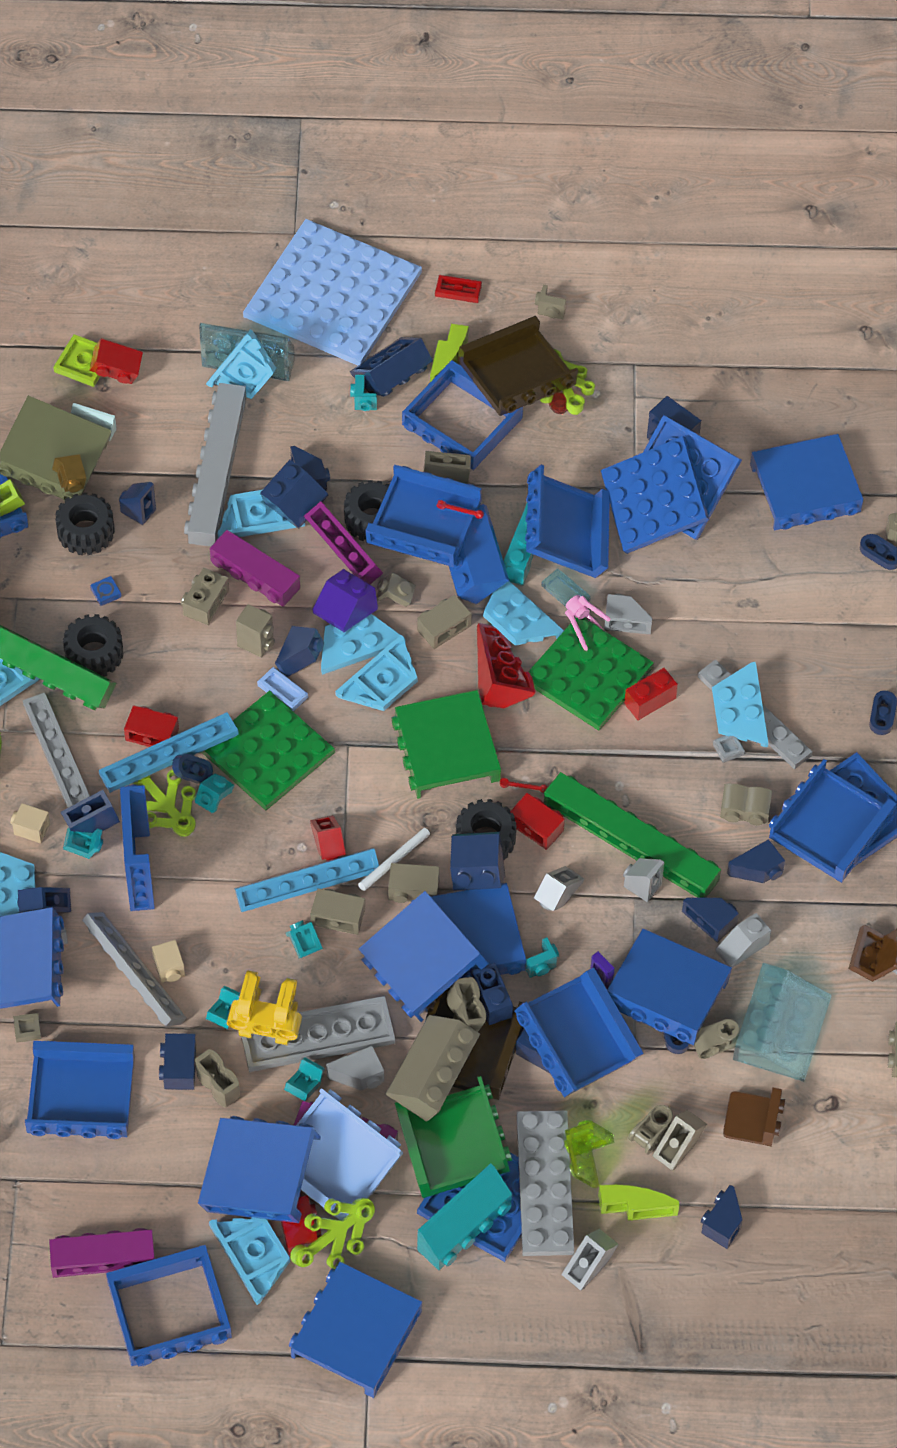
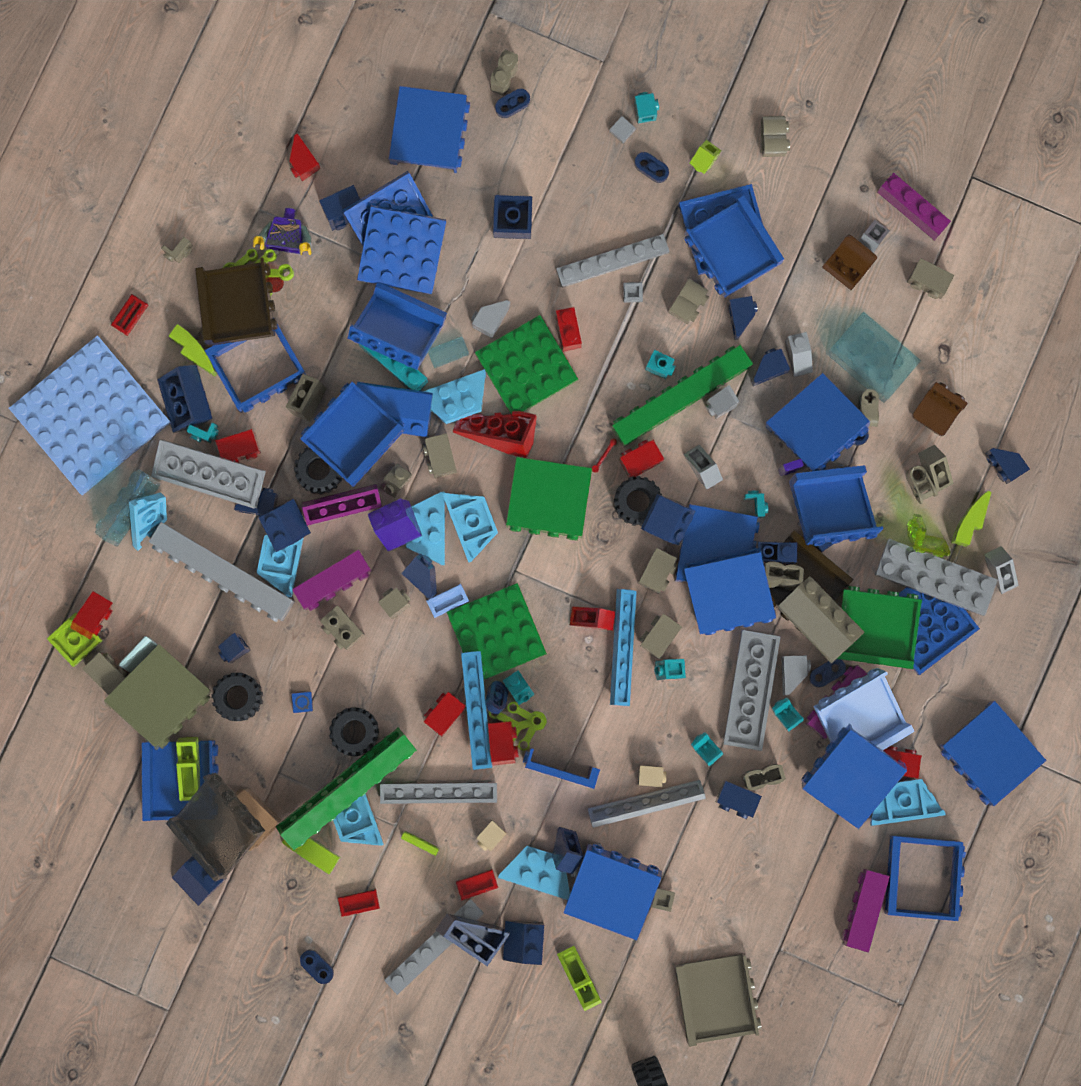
camera: 70 degrees left, 25 degrees up
(62, 392) = (105, 672): none -> dark tan brick
(70, 472) = (194, 693): pearl gold window -> none
(80, 1089) = (730, 879): blue panel -> none
(83, 843) = (523, 801): teal bracket -> none
(91, 814) = (506, 789): dark blue slope -> none
(152, 778) = (502, 743): none -> red brick
(264, 1018) = (742, 729): yellow piece -> none
(318, 409) = (208, 473): none -> light grey plate
(336, 1232) = (919, 741): lime plant -> none
(361, 431) = (239, 446): none -> red brick
(377, 1107) = (827, 673): none -> dark blue plate
(394, 858) = (631, 577): white bar -> none
(442, 505) = (370, 391): red hinge -> none
(464, 1218) = (948, 647): teal slope -> none
(578, 608) = (473, 350): bright pink plant -> none
(616, 389) = (285, 235): none -> torso
(657, 801) = (660, 365): none -> teal brick
(709, 378) = (302, 160): none -> red slope
(740, 706) = (608, 269): medium azure wing -> none
(750, 592) = (512, 217): none -> dark blue brick

